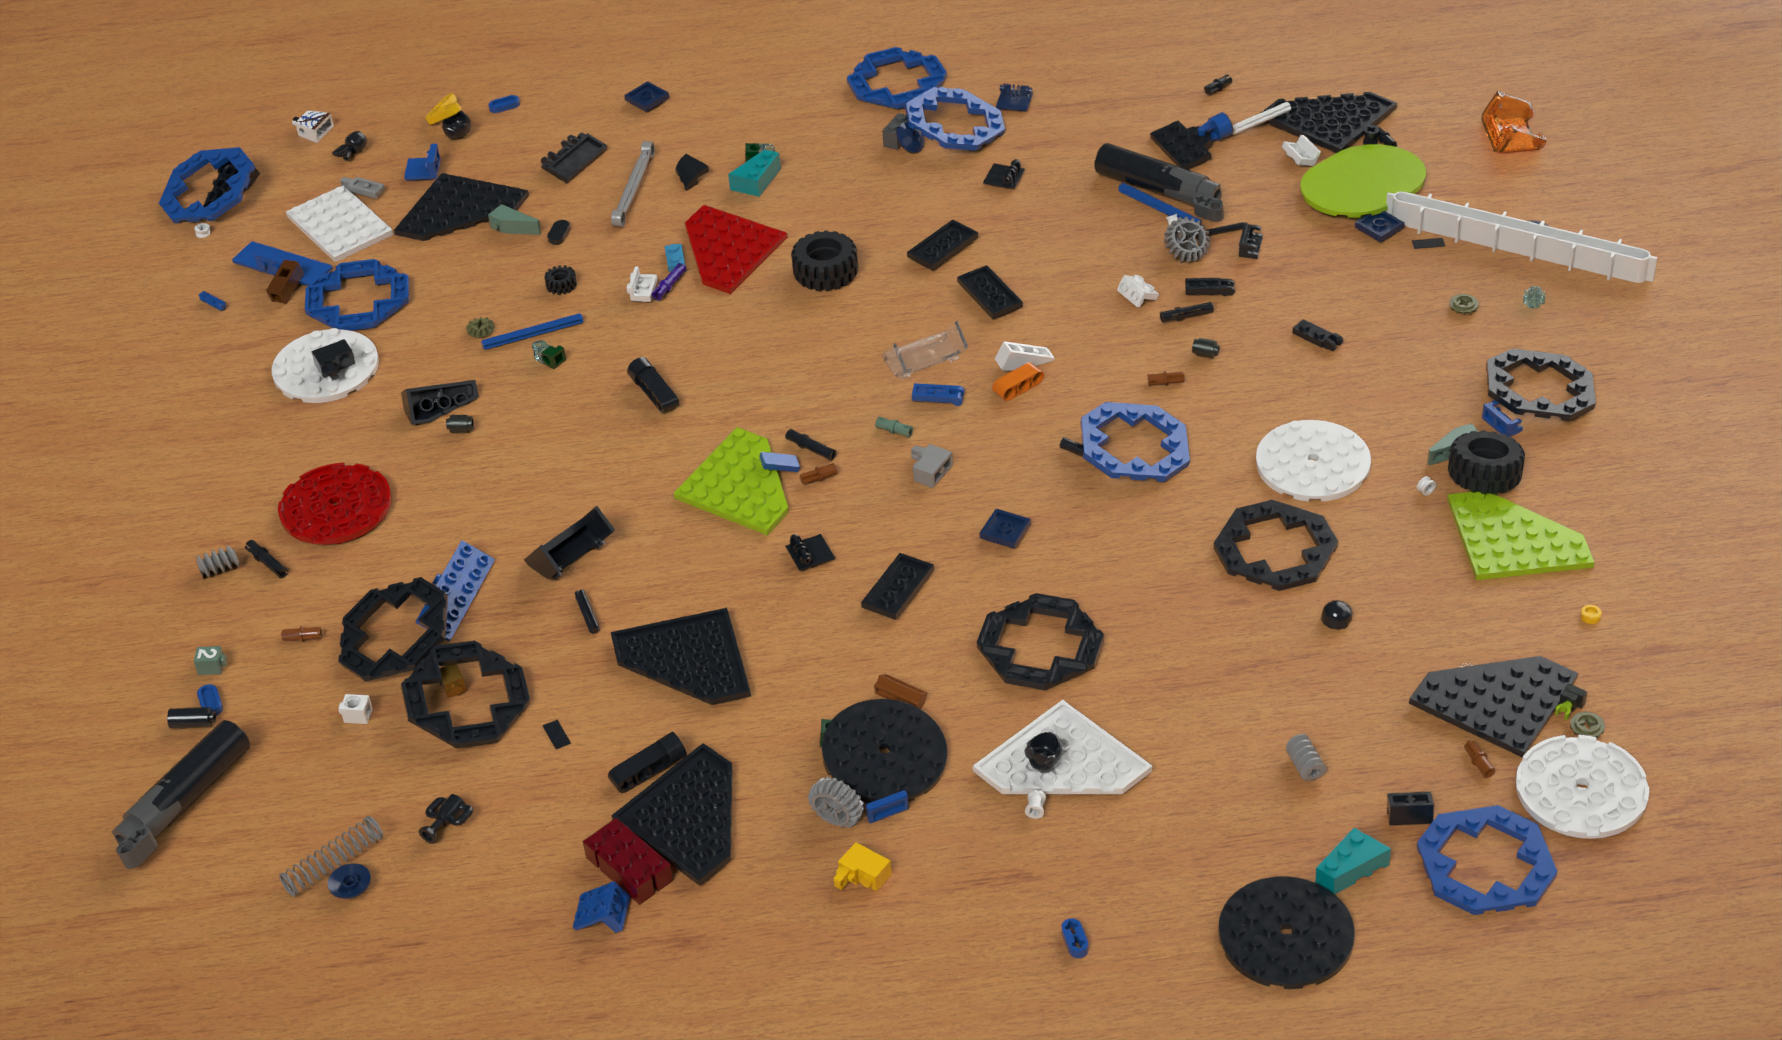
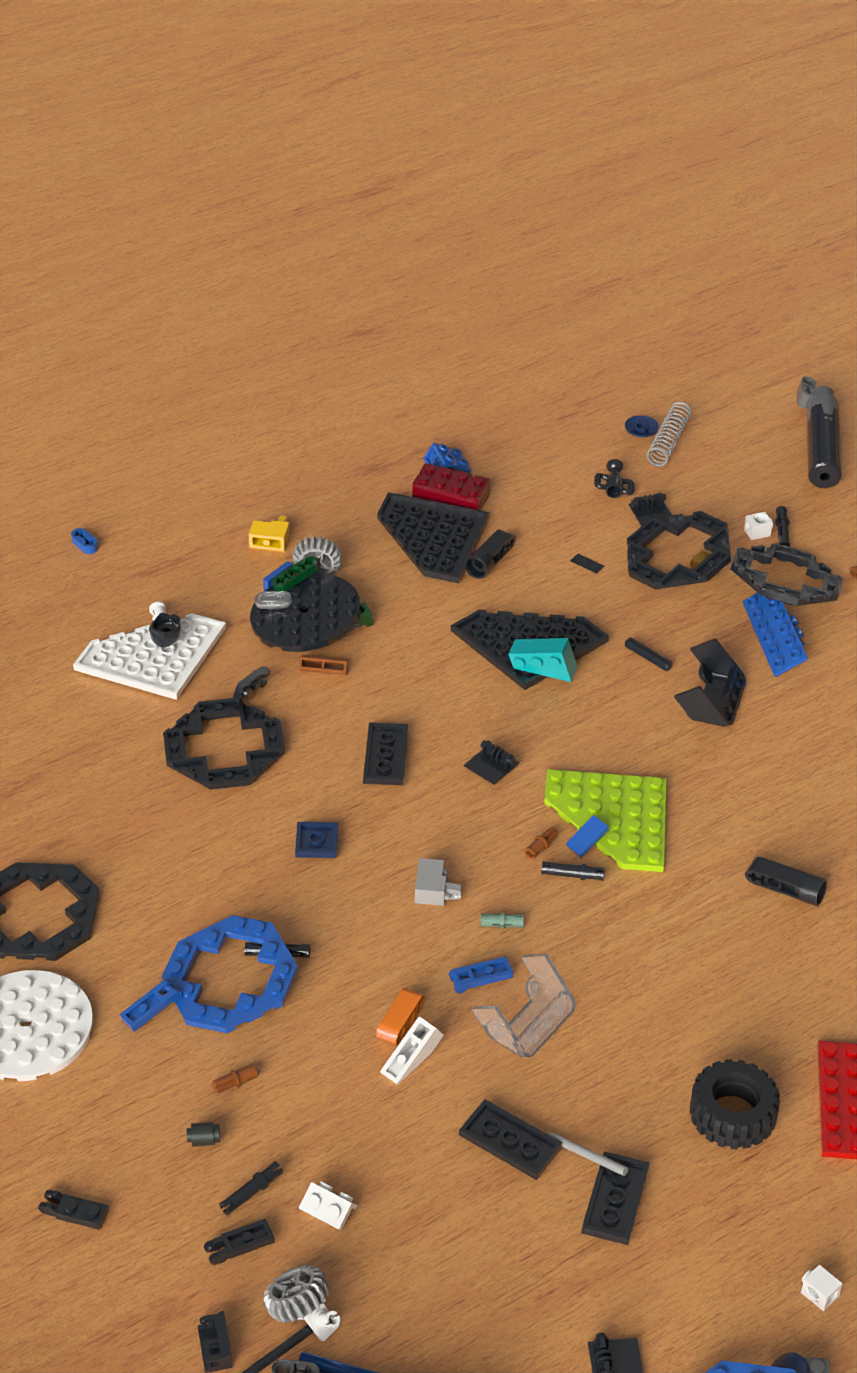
camera: 150 degrees right, 0 degrees up
(318, 717) = (782, 523): none -> black pin
(439, 770) = (649, 508): none -> black hinge
(696, 607) = (544, 657): none -> teal wedge
(852, 171) = (820, 1287): none -> white brick
(889, 786) = (305, 568): none -> dark green beam
(911, 766) = (273, 600): none -> clear tile
(945, 266) = (591, 1155): none -> light grey bar
(985, 681) = (251, 683): none -> black hinge
(1207, 437) = (150, 1005): none -> blue plate

